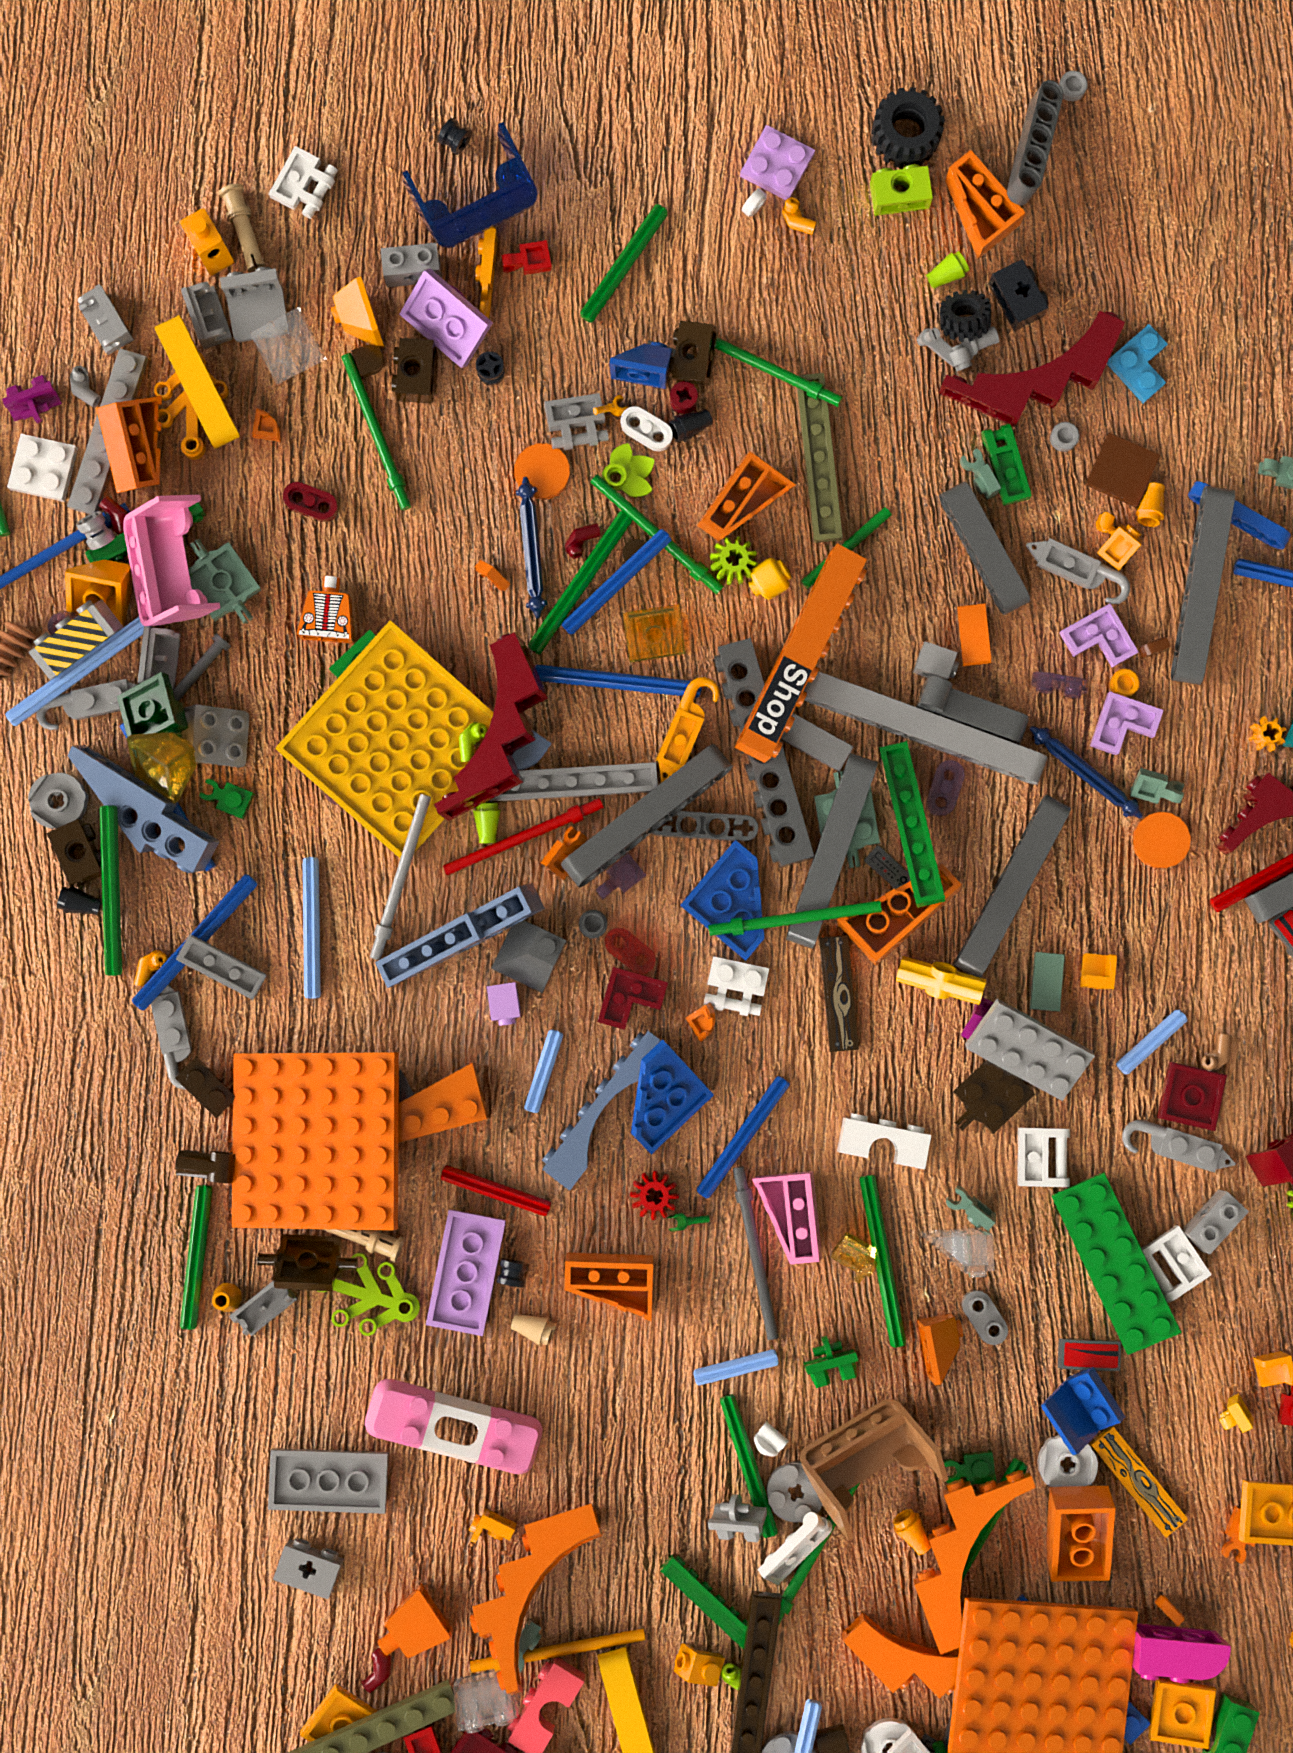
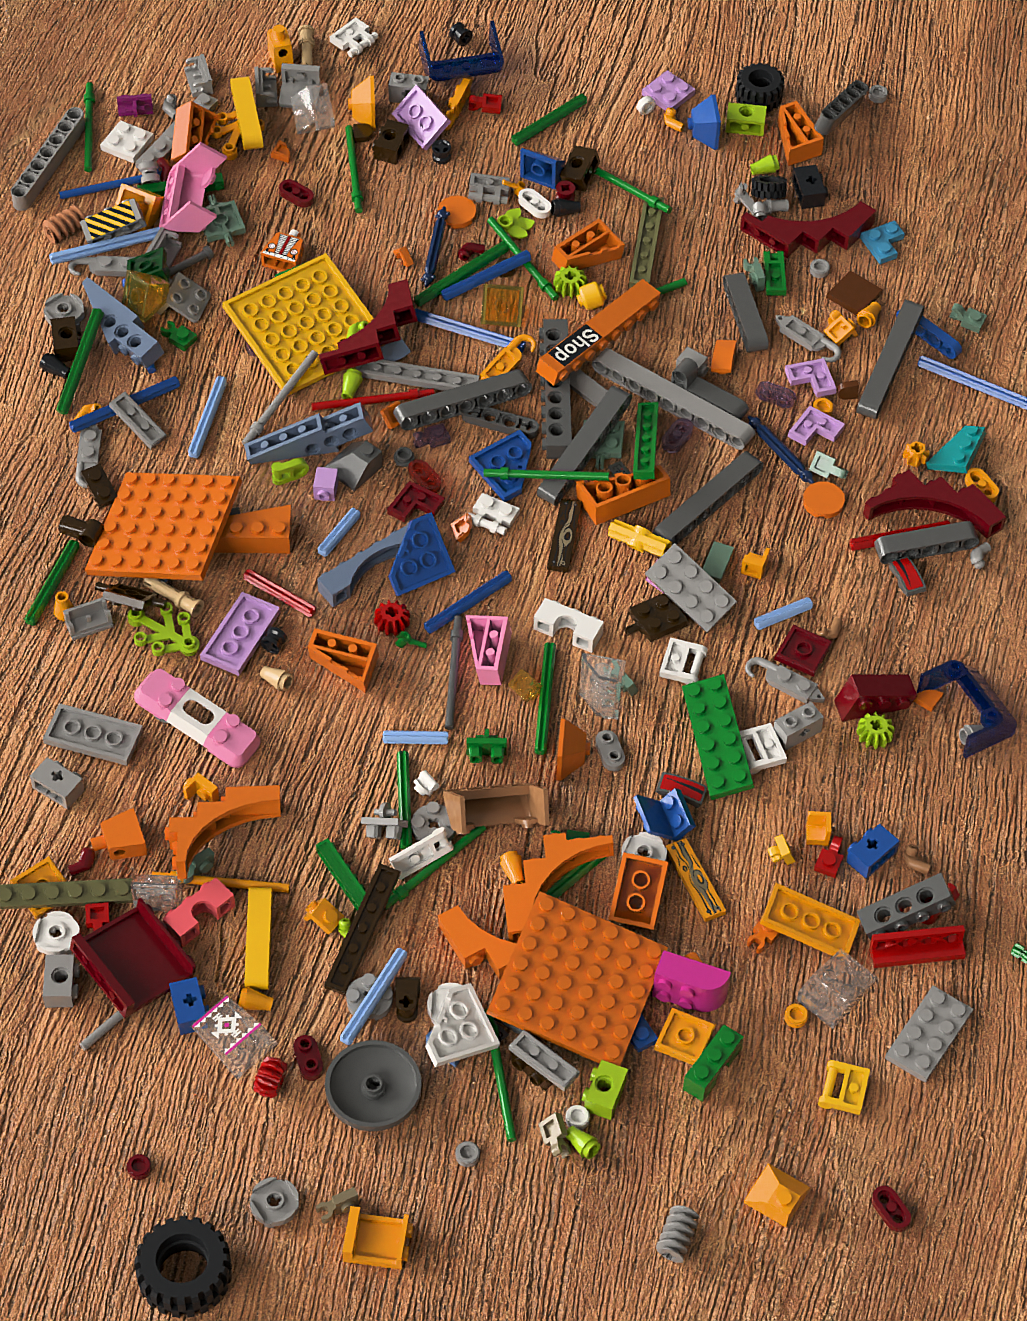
camera: 15 degrees right, 30 degrees down
(455, 987) = (289, 471): none -> lime plate
(849, 218) = (706, 122): none -> blue slope

